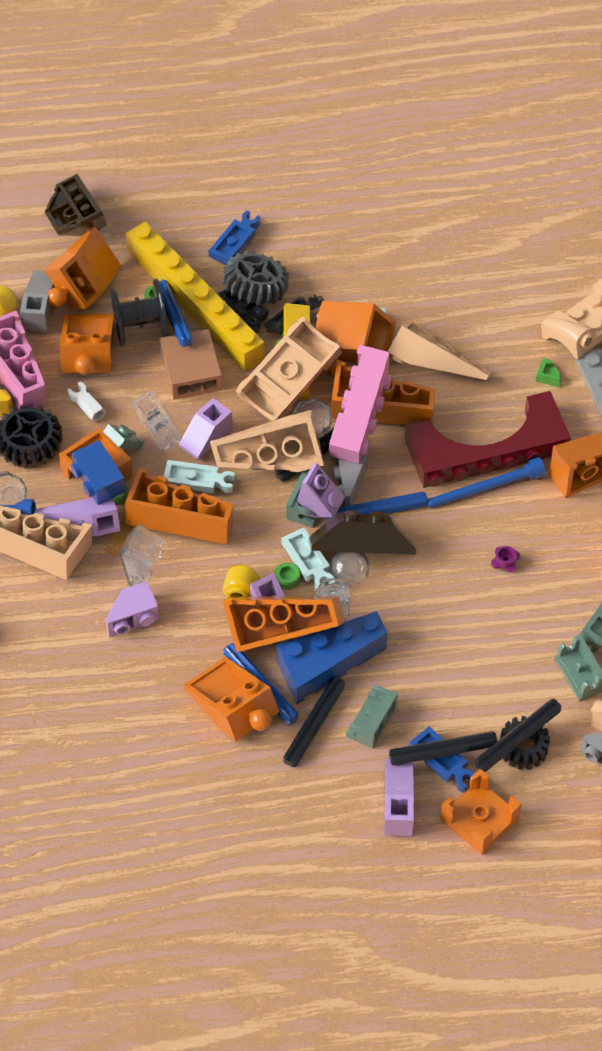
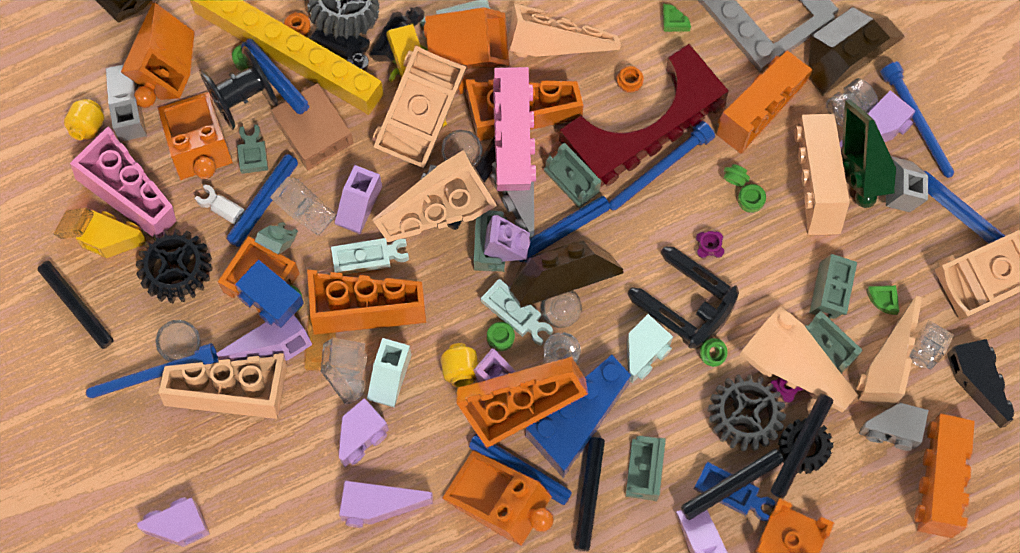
camera: 20 degrees left, 15 degrees up
(123, 409) = (261, 201): none -> blue axle
(125, 669) = (374, 503): none -> lavender slope
(131, 371) = (253, 153): none -> sand green plate
(177, 569) = (389, 372): none -> light aqua slope
(213, 281) = (305, 25): none -> orange plate
(403, 467) = (572, 176): none -> sand green hinge
(411, 620) = (646, 344): none -> light aqua slope
(470, 708) = (752, 423): none -> dark grey gear
(479, 640) = (720, 355): none -> bright green plate
(483, 617) = (714, 318): none -> black piece
(485, 403) = (630, 72): none -> orange plate
(525, 697) = (787, 394): none -> magenta plate
(542, 661) = (792, 353): none -> light nougat wedge
(551, 510) = (736, 175): none -> bright green plate
(559, 534) = (751, 198): none -> bright green tile

